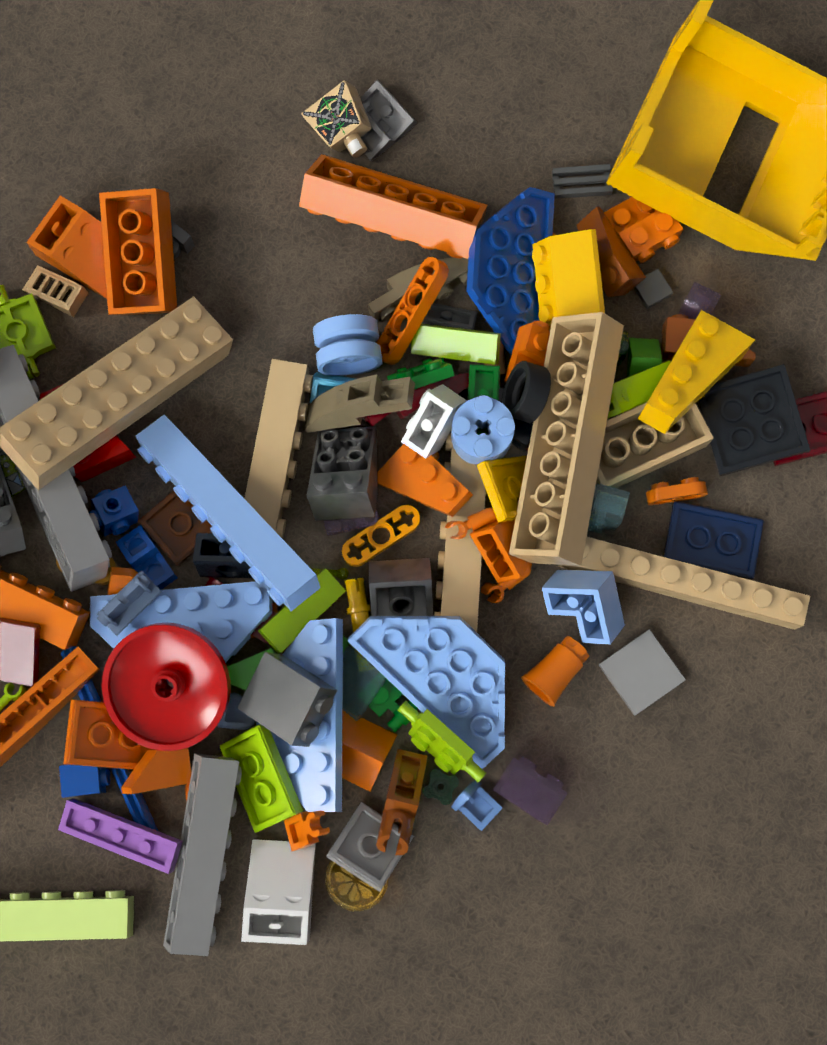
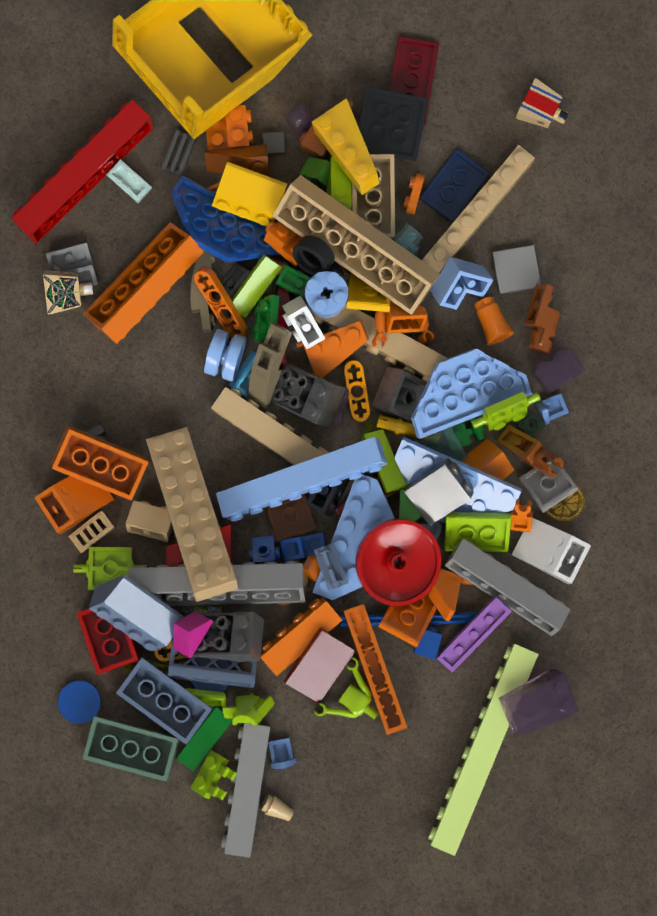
camera: 70 degrees left, 5 degrees up
(58, 970) = (539, 702): none -> clear purple slope
(92, 341) = (149, 521): none -> tan brick
(498, 74) = (83, 171): none -> red brick
(516, 138) = (129, 181): none -> light aqua plate
(590, 736) = (542, 319): none -> dark orange plate

